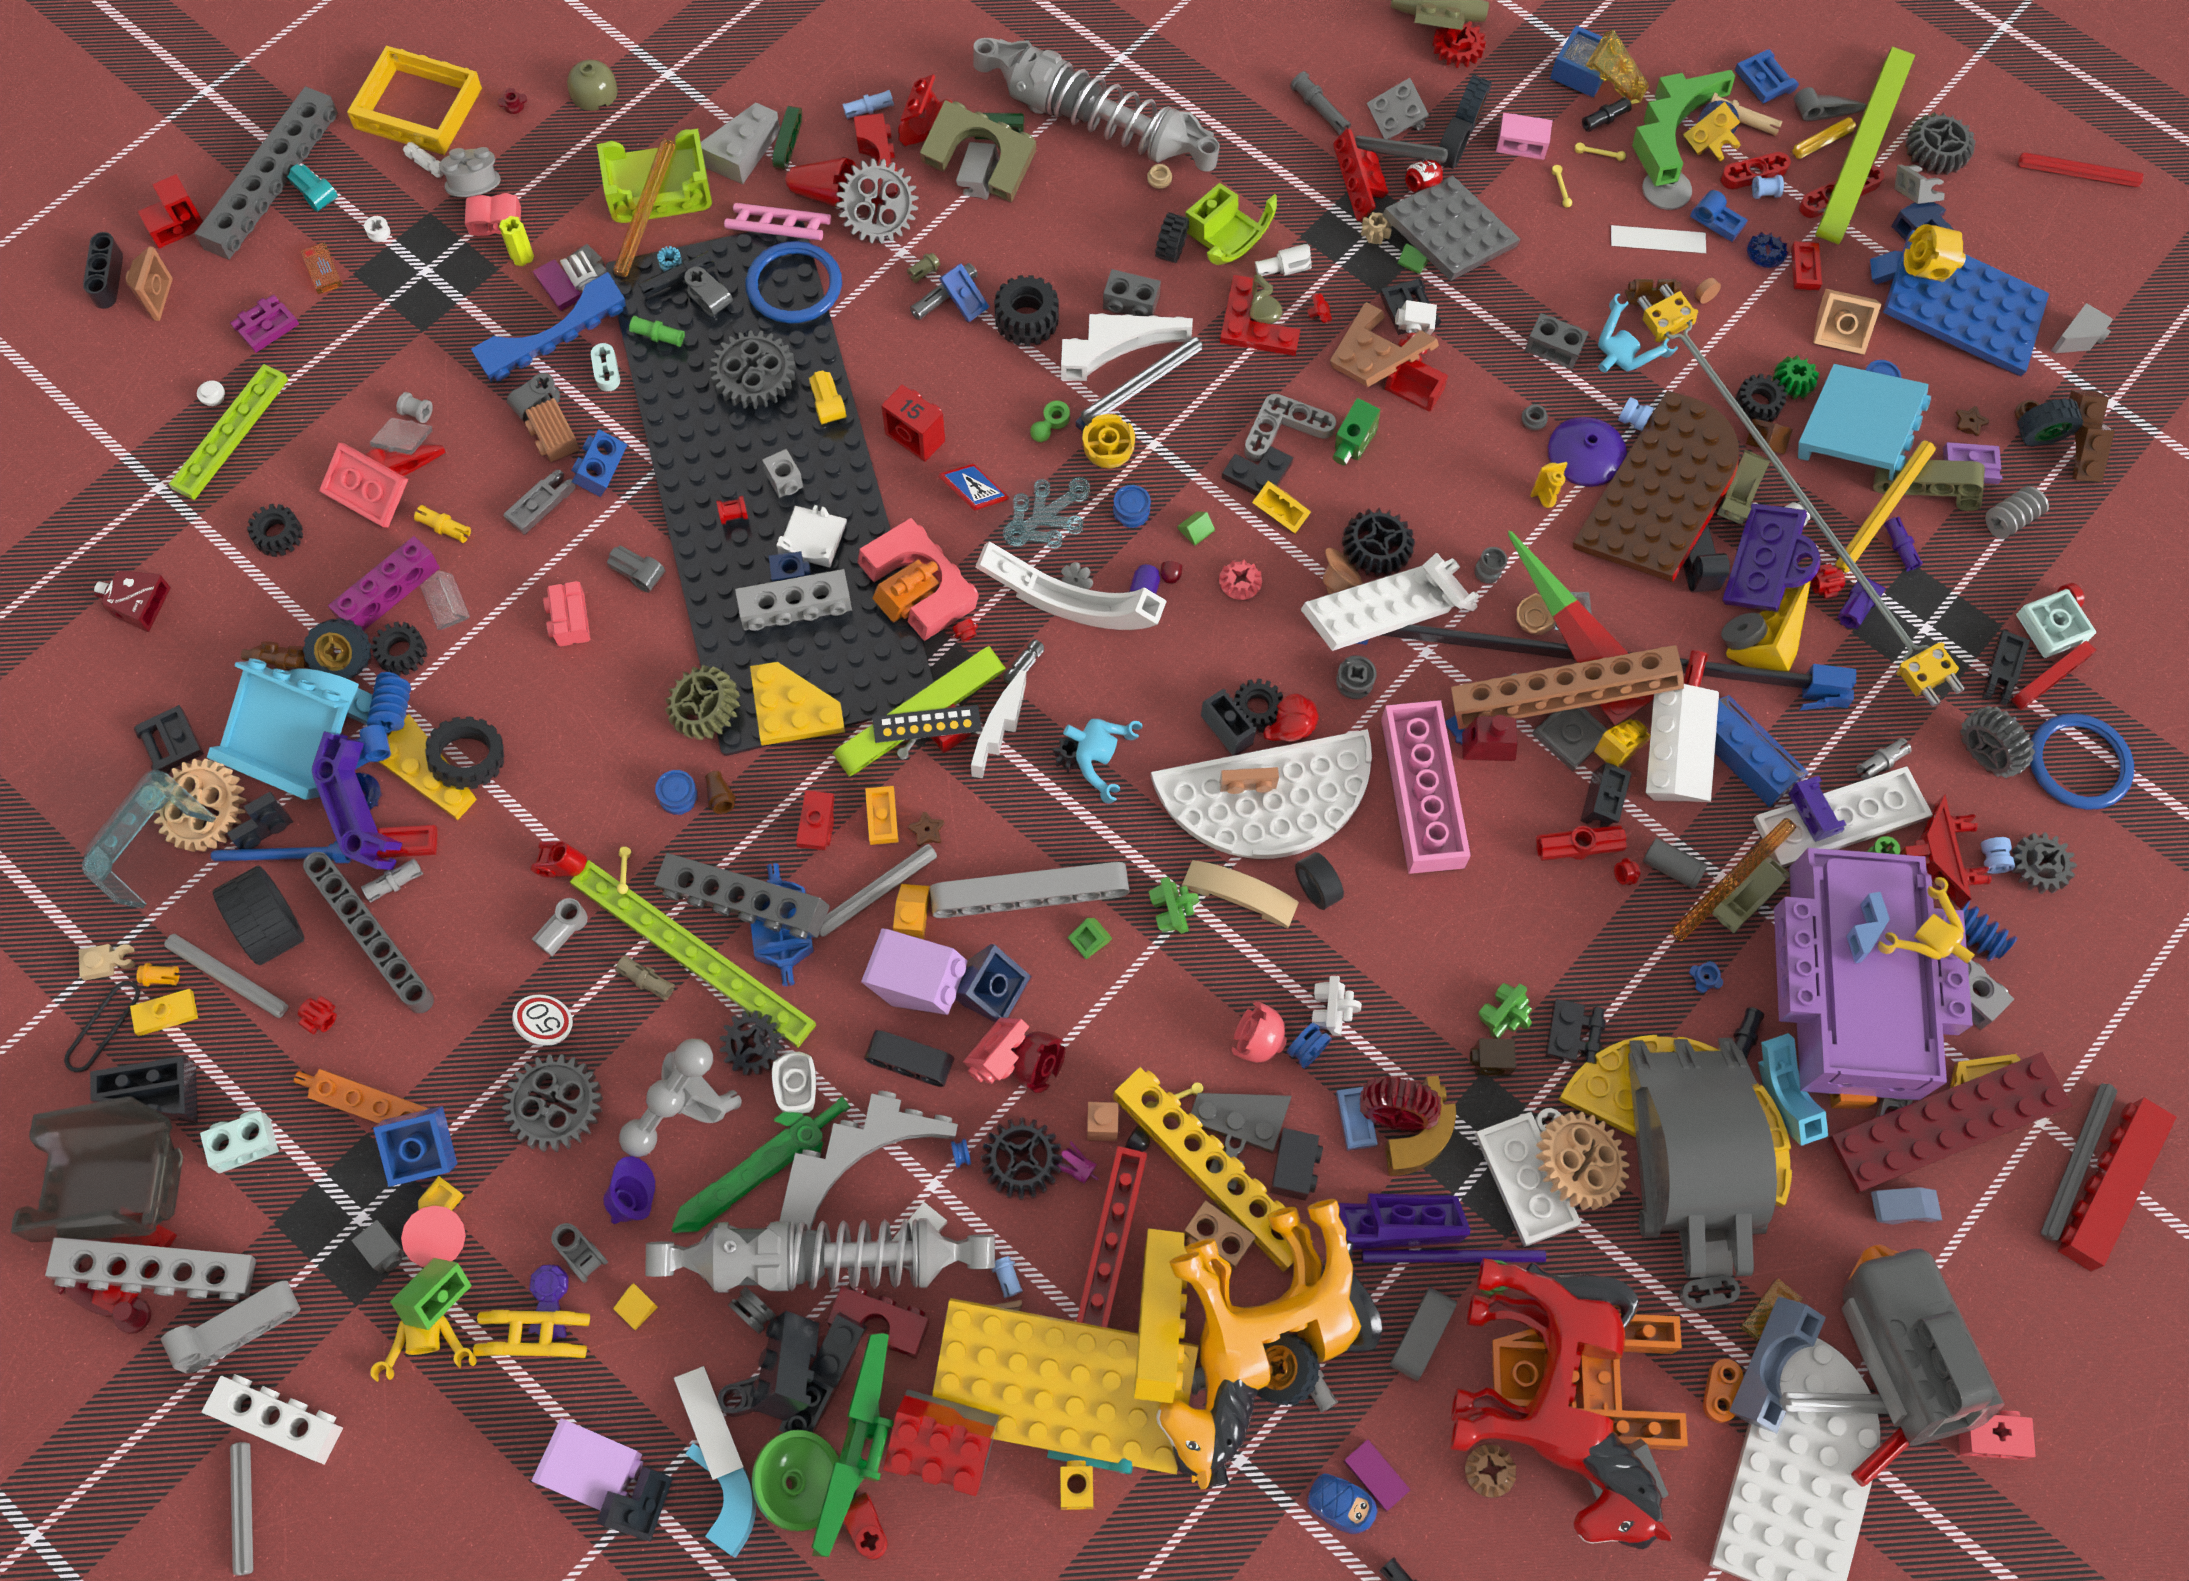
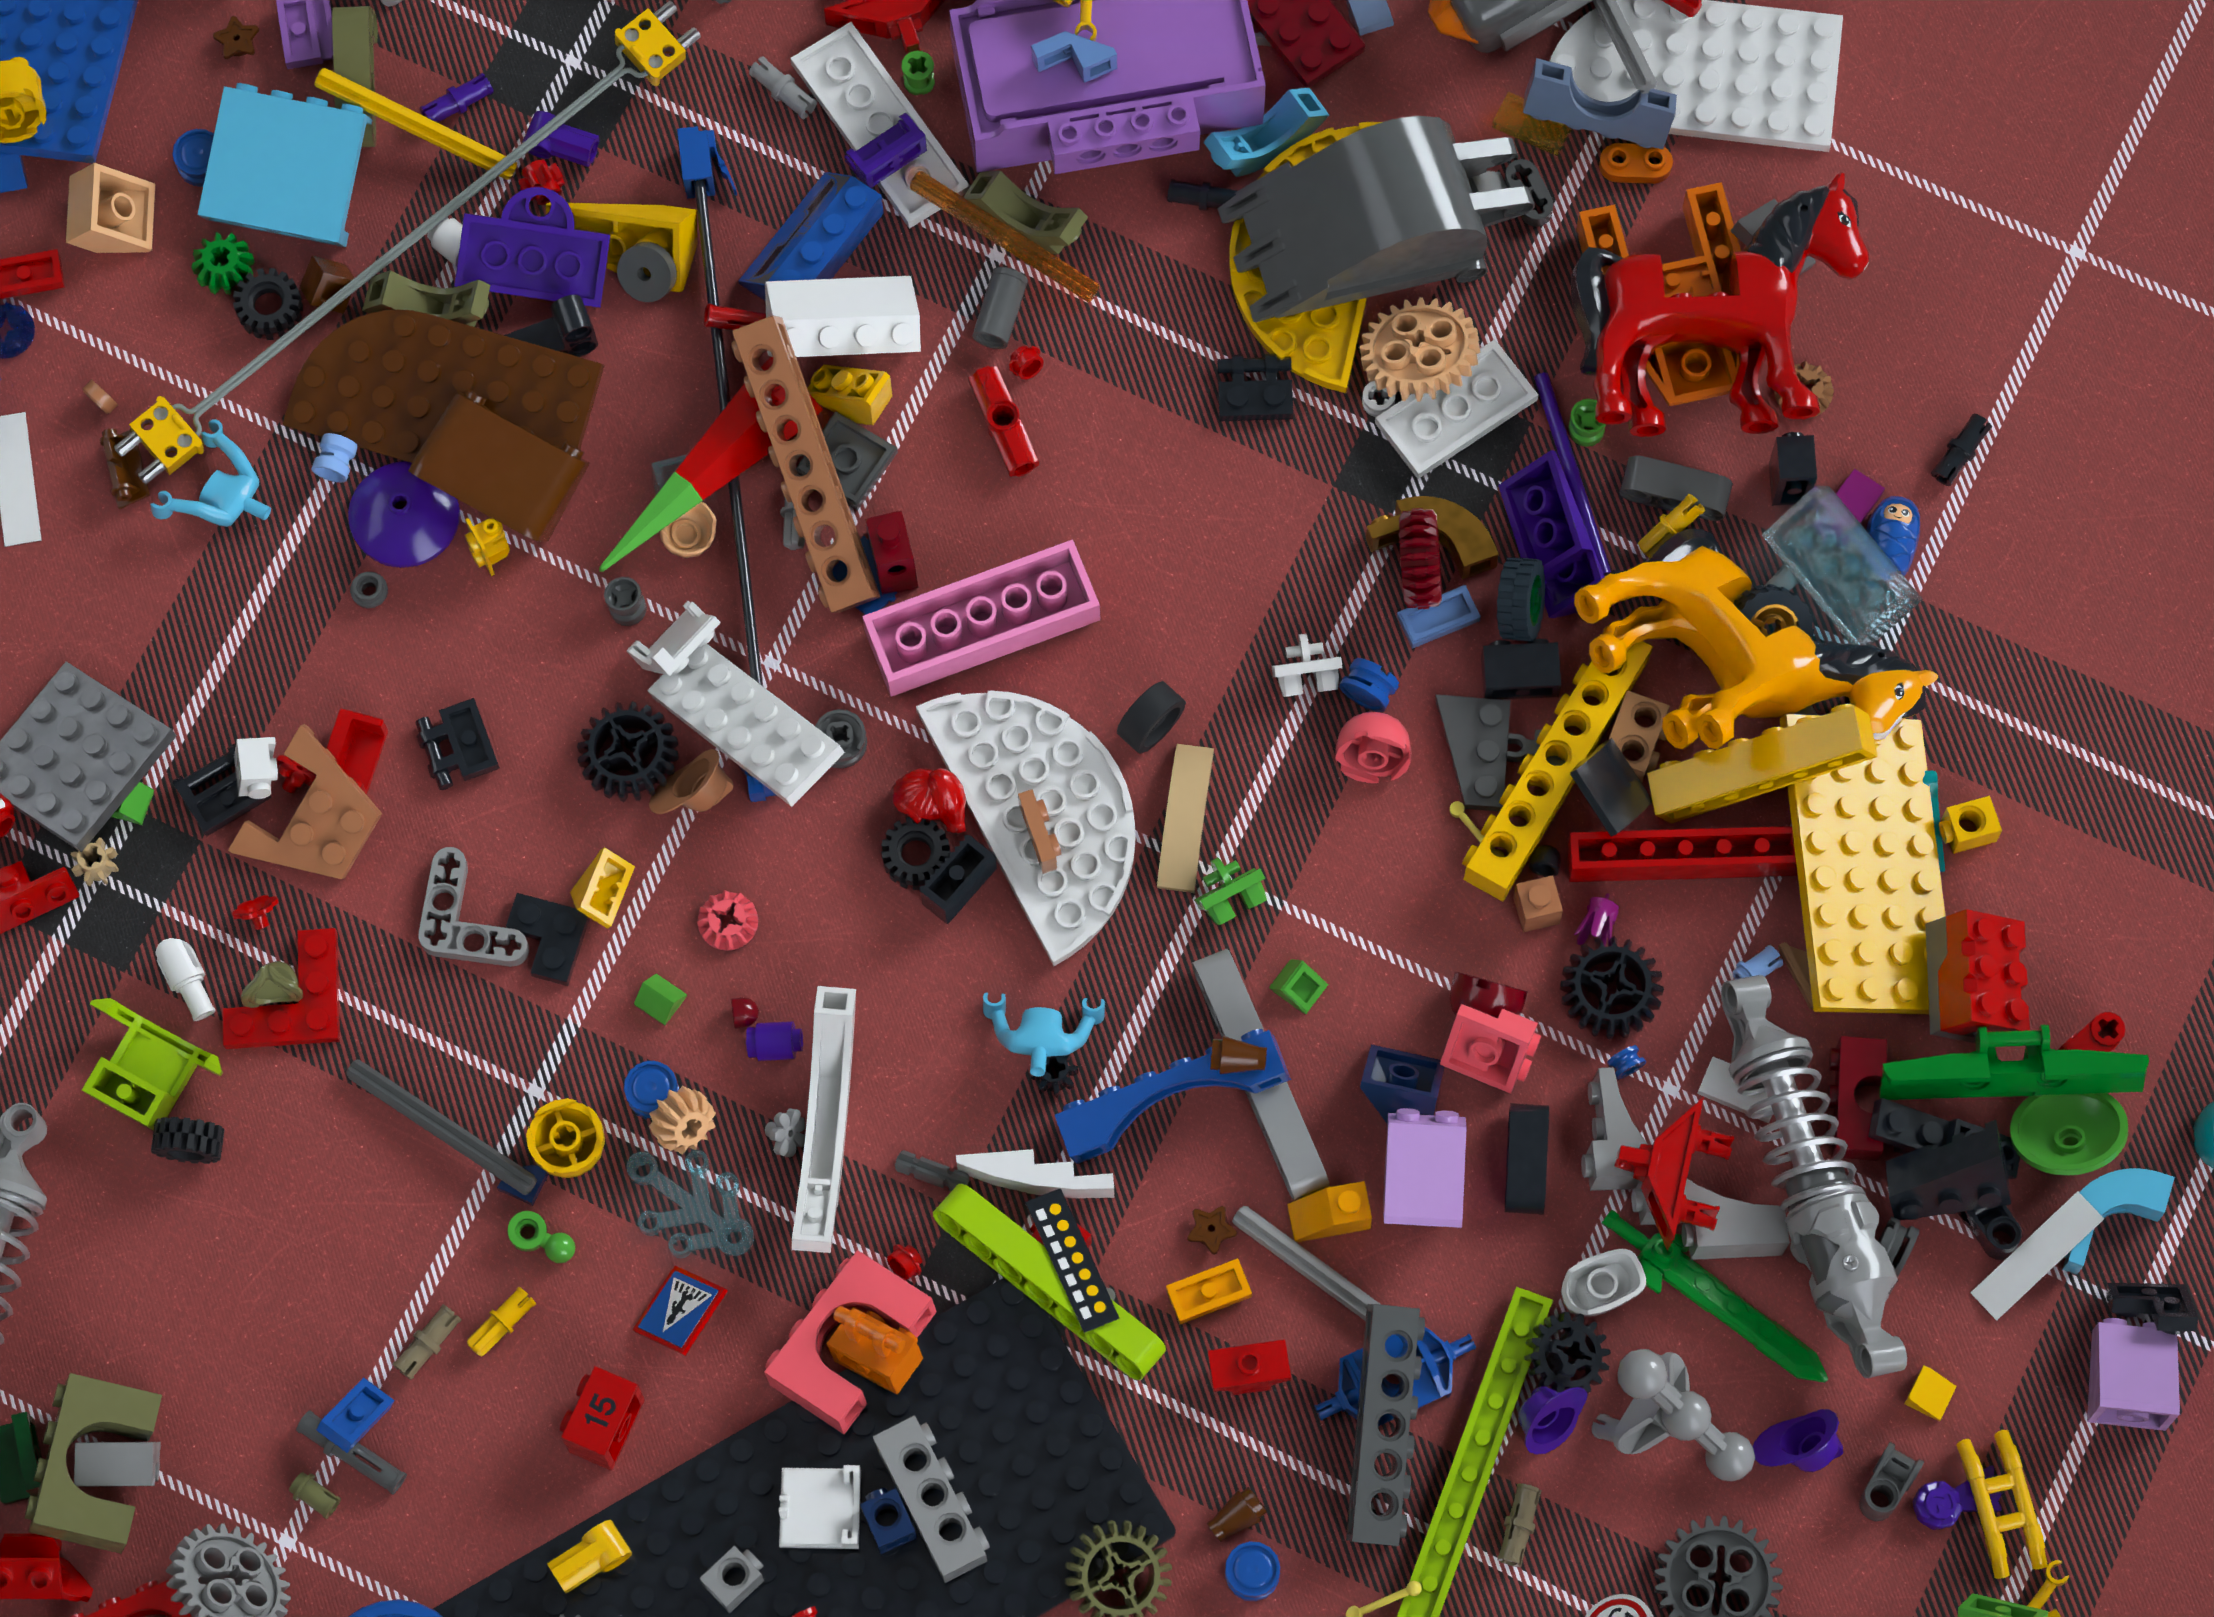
camera: 100 degrees left, 5 degrees up
(710, 1013) = (1550, 1417): none -> dark purple piece
(791, 706) = (1087, 1456): yellow plate -> none
(859, 1142) = (1665, 1171): none -> red connector
(1001, 388) = (500, 1322): none -> yellow axle
(1002, 346) = (427, 1342): none -> dark tan pin
(1021, 294) = (345, 1292): black tyre -> none
(1029, 866) = (1098, 1124): none -> blue arch
(1033, 852) = (1236, 1056): none -> reddish brown cone
(1102, 513) = (682, 1120): none -> light nougat gear
(1115, 336) = (377, 1190): white arch -> none
(1131, 294) = (287, 1179): dark grey brick -> none
(1159, 176) = (65, 1194): tan plate -> none
(1174, 1192) = (1611, 787): none -> black slope
(1320, 1443) = (1841, 566): none -> clear light blue brick
(1350, 1174) = (1521, 599): none -> black wheel
(1356, 431) = (450, 812): green torso -> none
(1390, 1317) = (1671, 524): none -> yellow axle
(1410, 451) = (468, 740): none -> black plate
(1417, 1429) = (1792, 468): none -> black brick
(1493, 1057) = (1318, 472): dark brown brick -> none
(1510, 1014) = (1236, 465): bright green hips -> none
(1556, 341) = (244, 581): dark grey brick -> none
(1600, 495) = (499, 467): none -> reddish brown windscreen
(1606, 795) = (930, 402): black hinge -> none
(1713, 973) = (1138, 241): blue plate -> none

